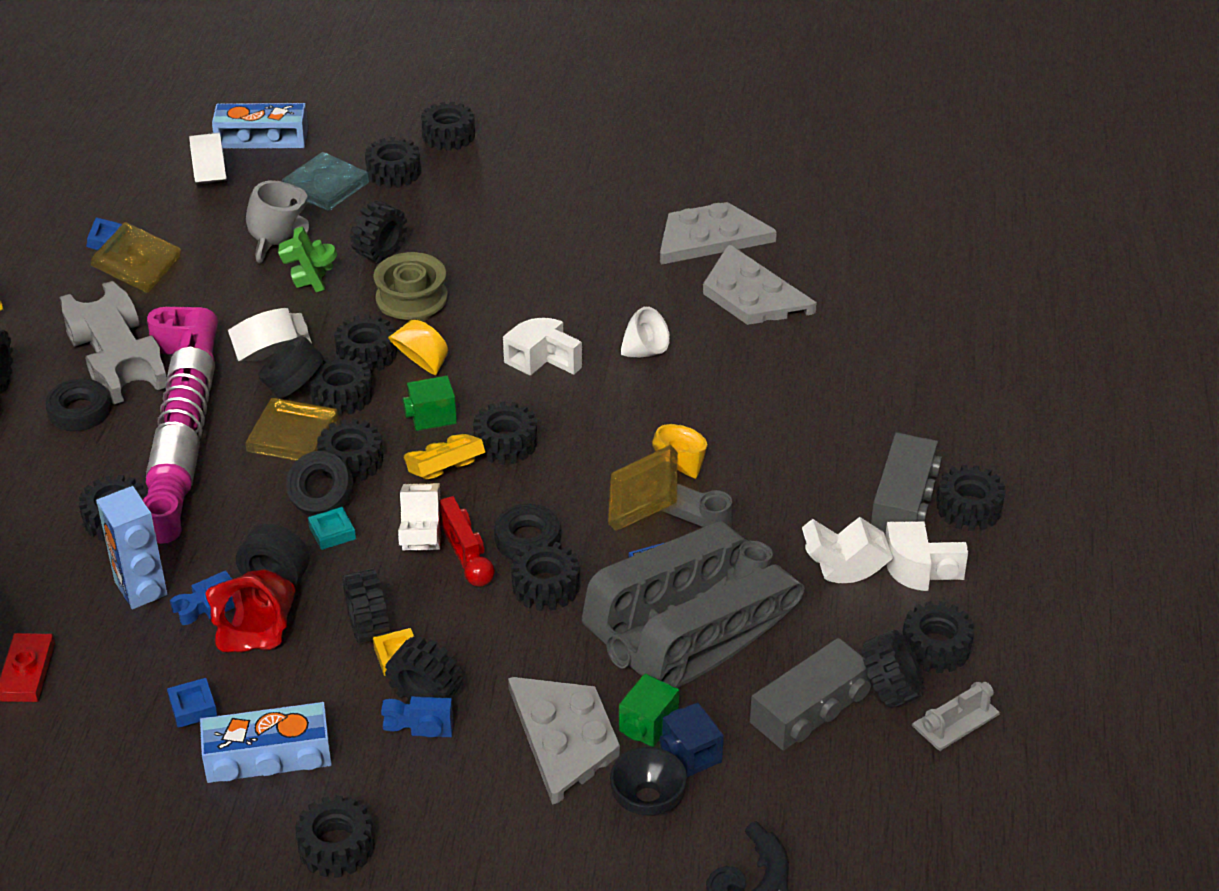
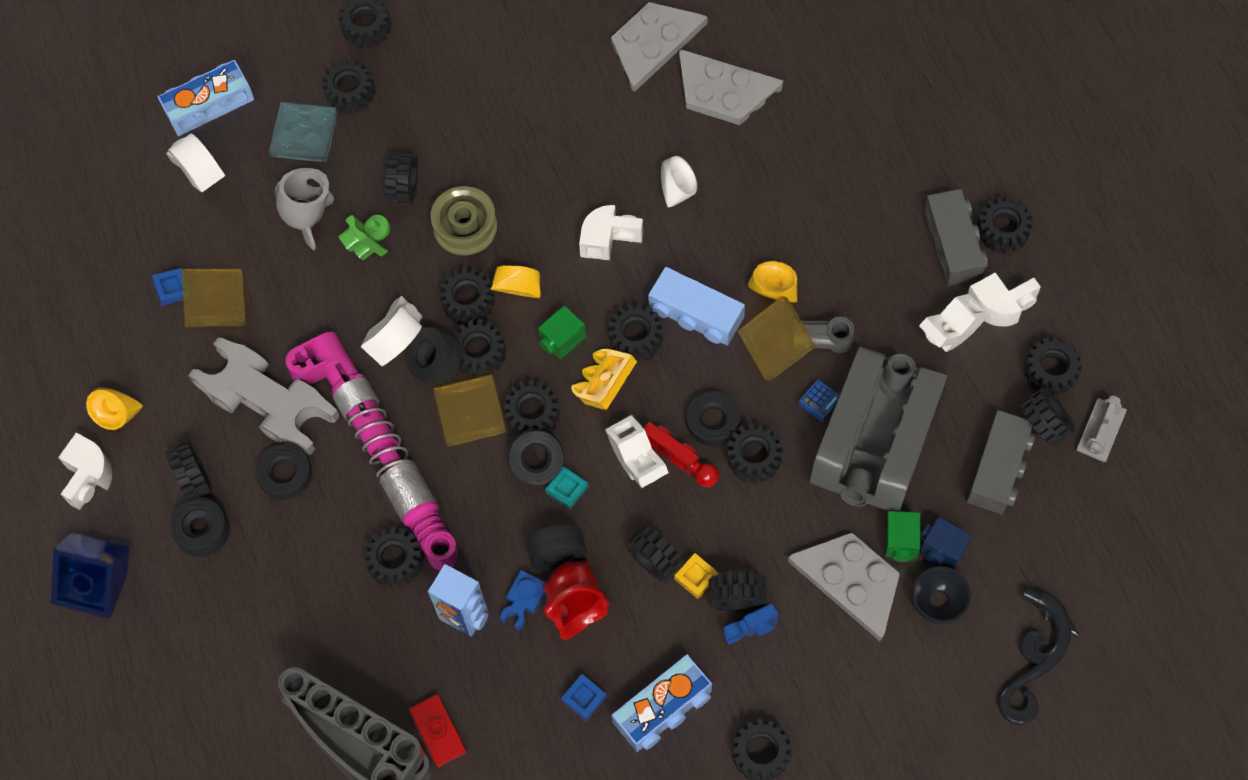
camera: 25 degrees left, 25 degrees up
(582, 434) = (696, 306): none -> light blue brick

